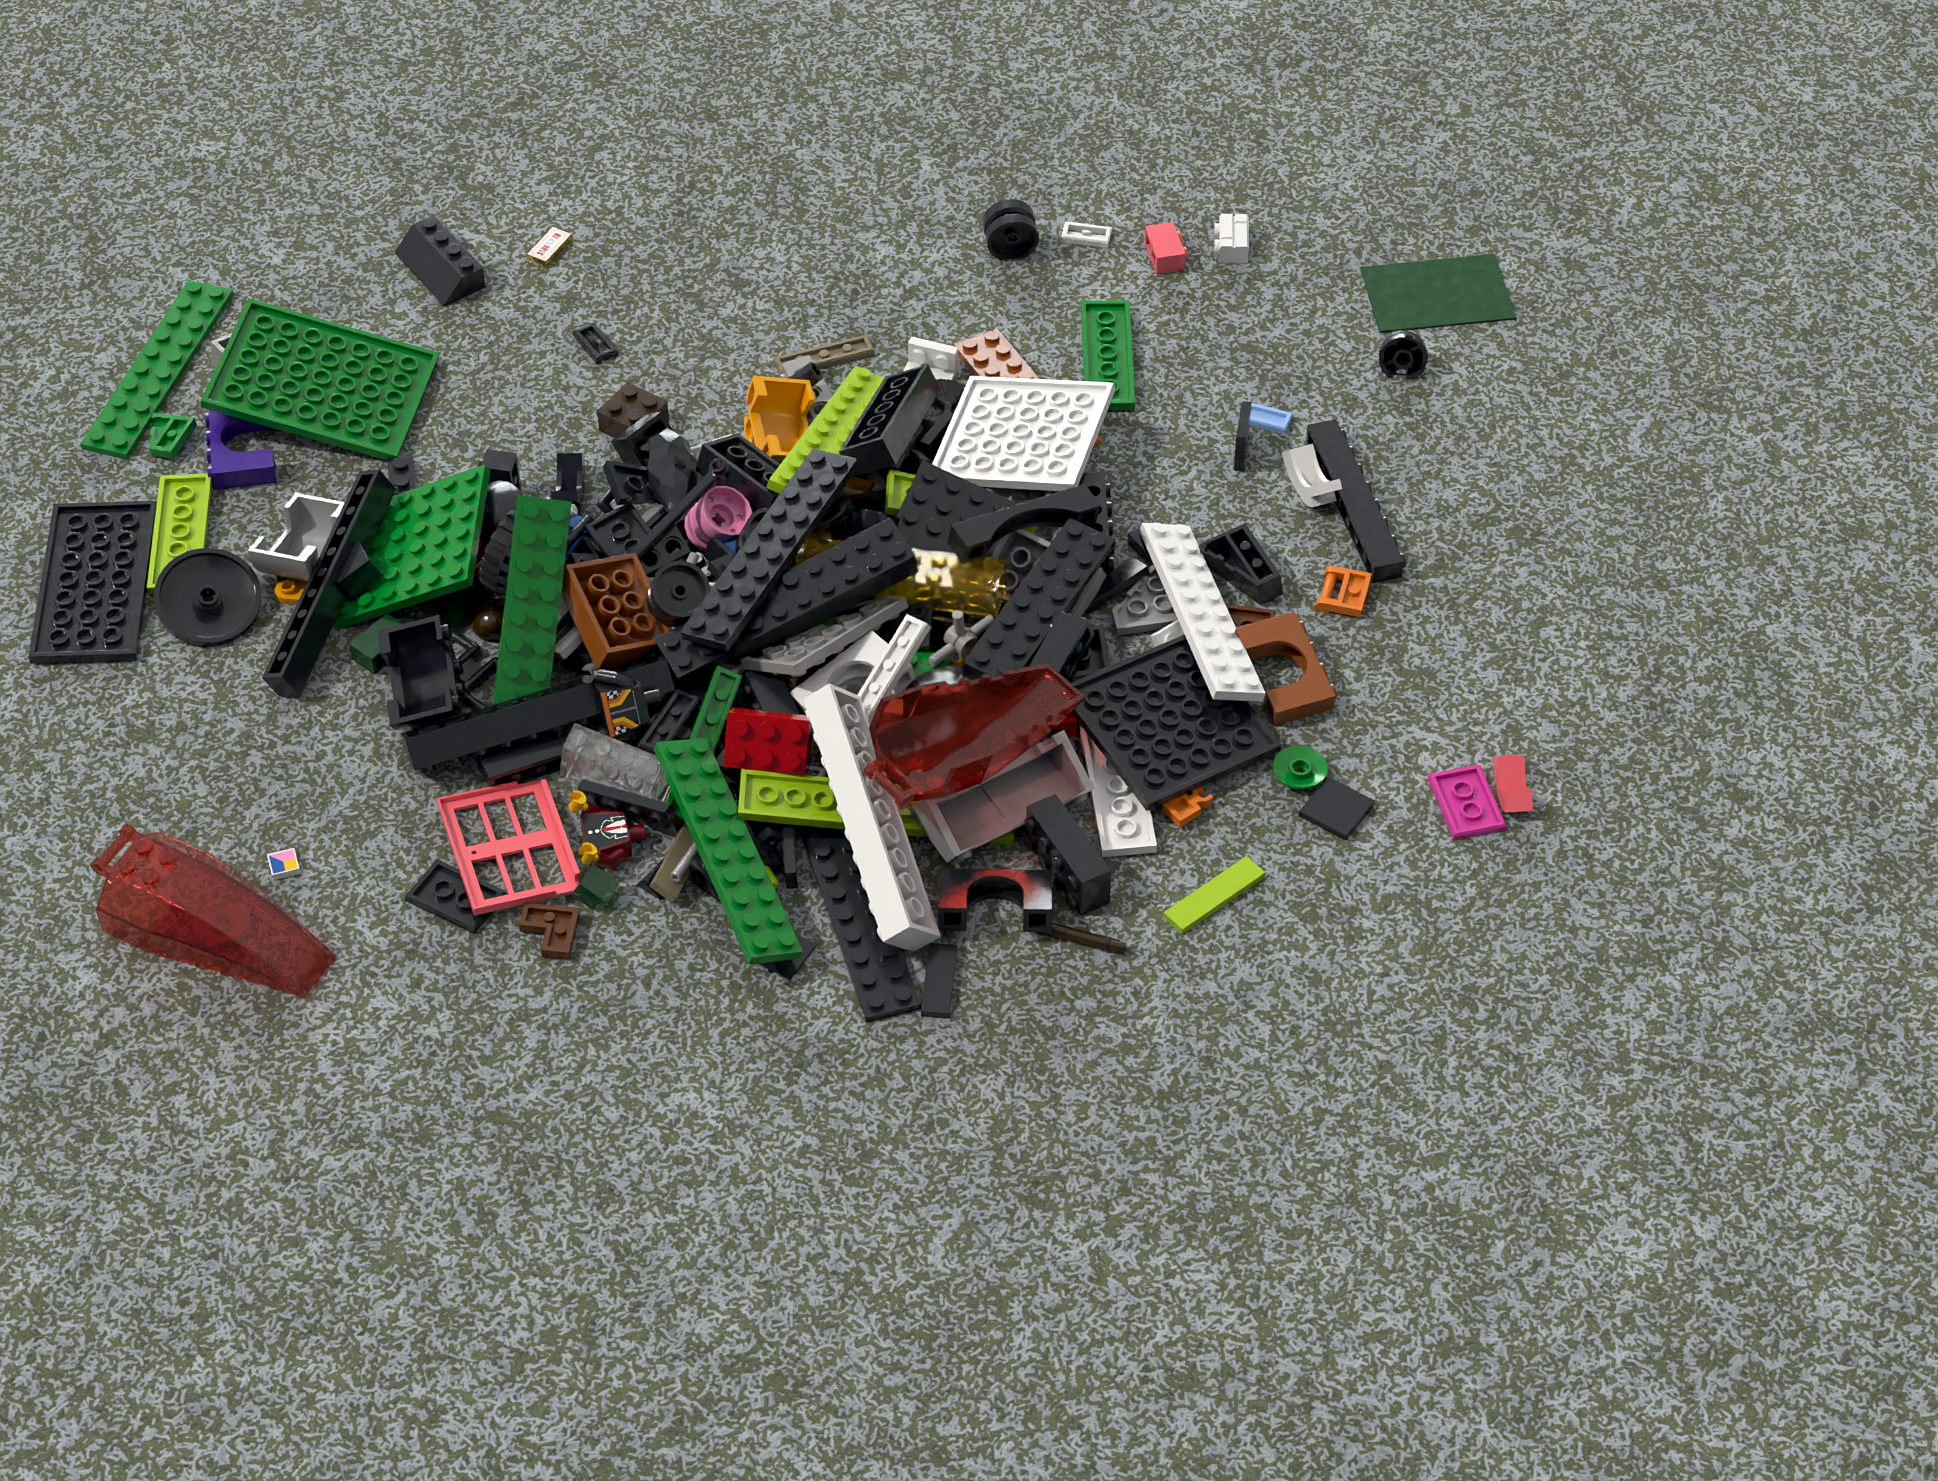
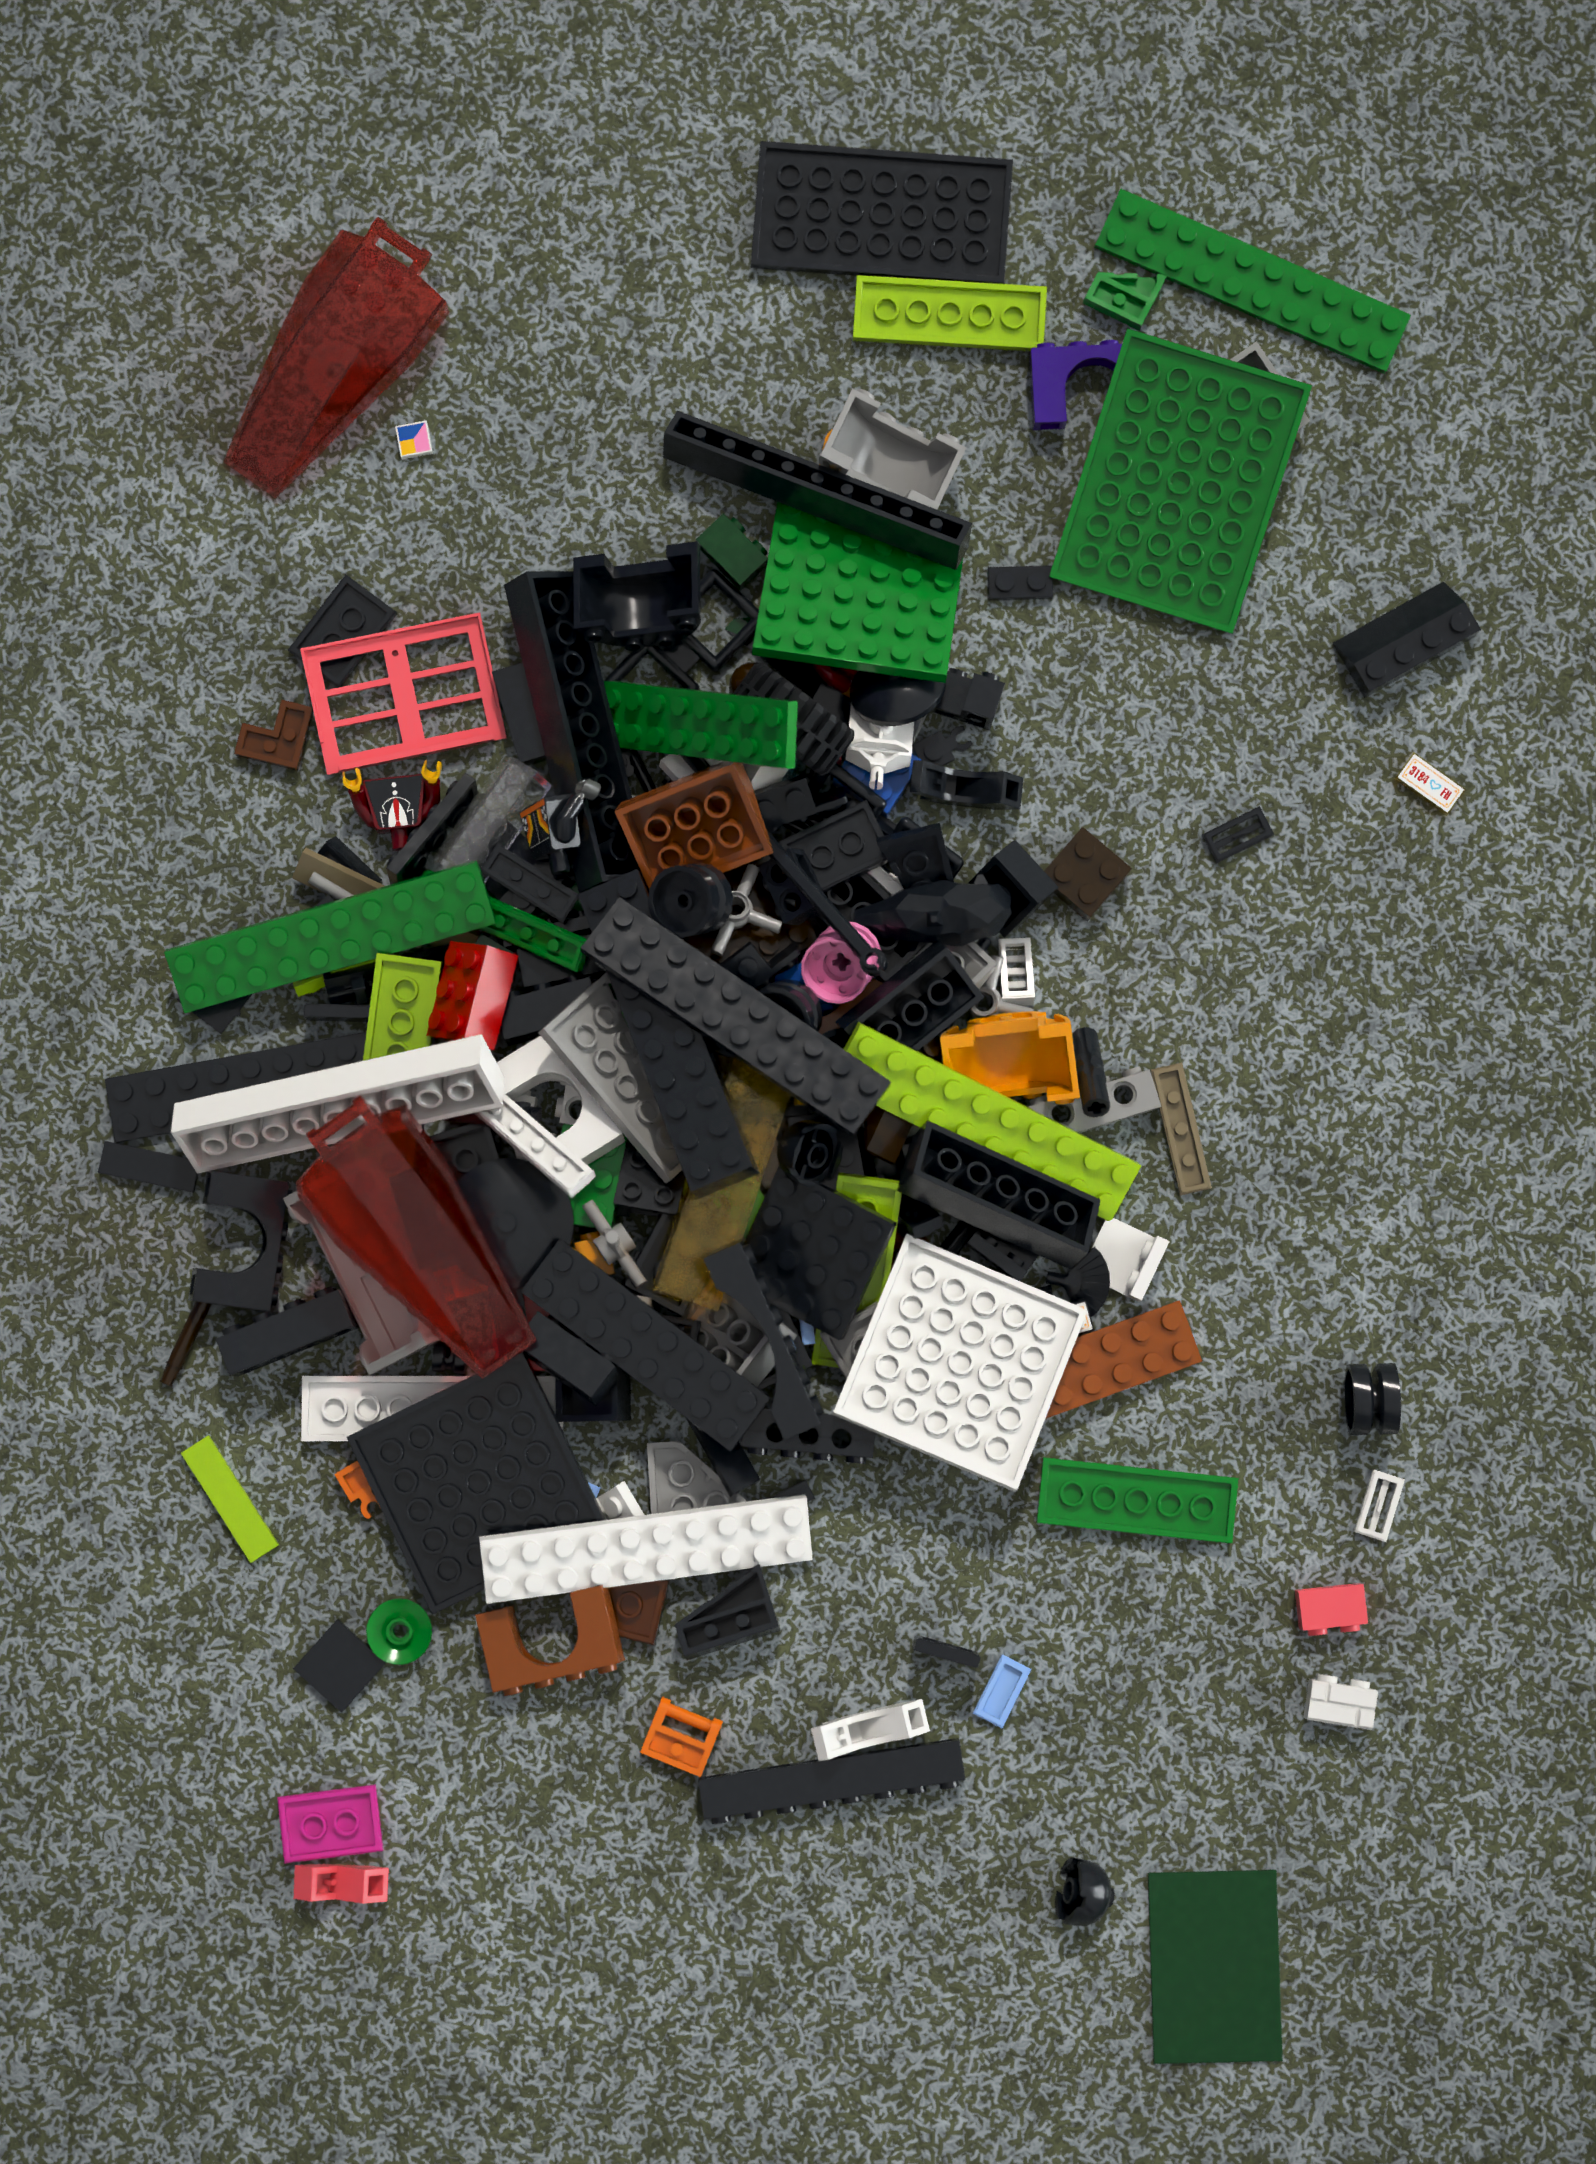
camera: 95 degrees right, 35 degrees up
(207, 597) = (824, 345): black dish -> none
(358, 571) = (827, 525): black slope -> none
(596, 889) = (318, 788): clear green brick -> none

